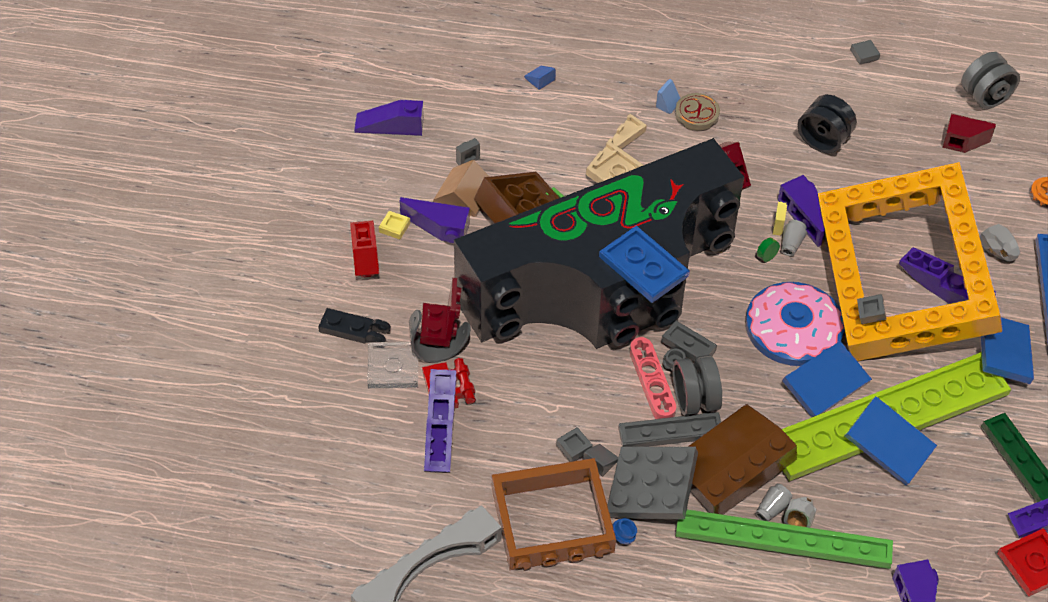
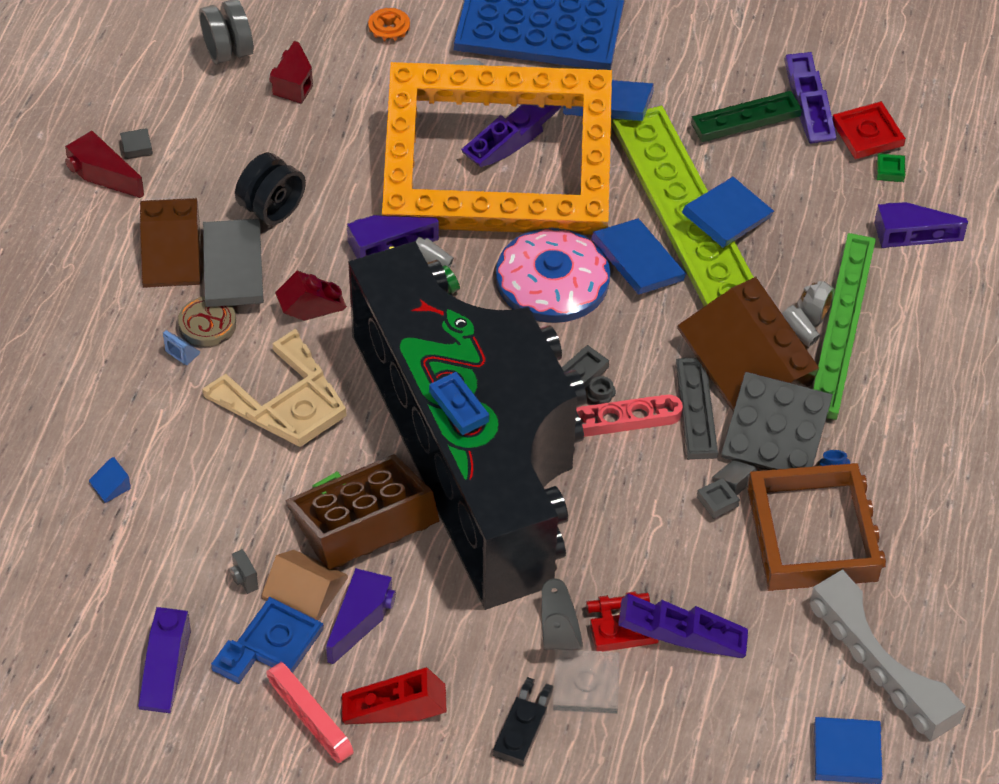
camera: 85 degrees left, 0 degrees up
(337, 542) = (848, 750): none -> blue tile
(352, 200) = (310, 712): none -> coral beam
(394, 225) = (353, 668): light yellow tile -> none
(395, 158) = (233, 661): none -> blue tile
(418, 180) = (280, 634): none -> blue tile
(438, 320) = (526, 604): dark red bracket -> none
(575, 208) = (459, 403): none -> blue plate
(644, 264) = (546, 349): blue tile -> none
(697, 385) = (654, 363): dark grey wheel -> none
(754, 117) = (232, 262): none -> dark grey tile
(766, 79) = (170, 242): none -> reddish brown slope
(837, 28) = (102, 165): none -> dark red slope
(871, 309) = (576, 183): dark grey plate -> none
(995, 584) = (890, 167): none -> green tile

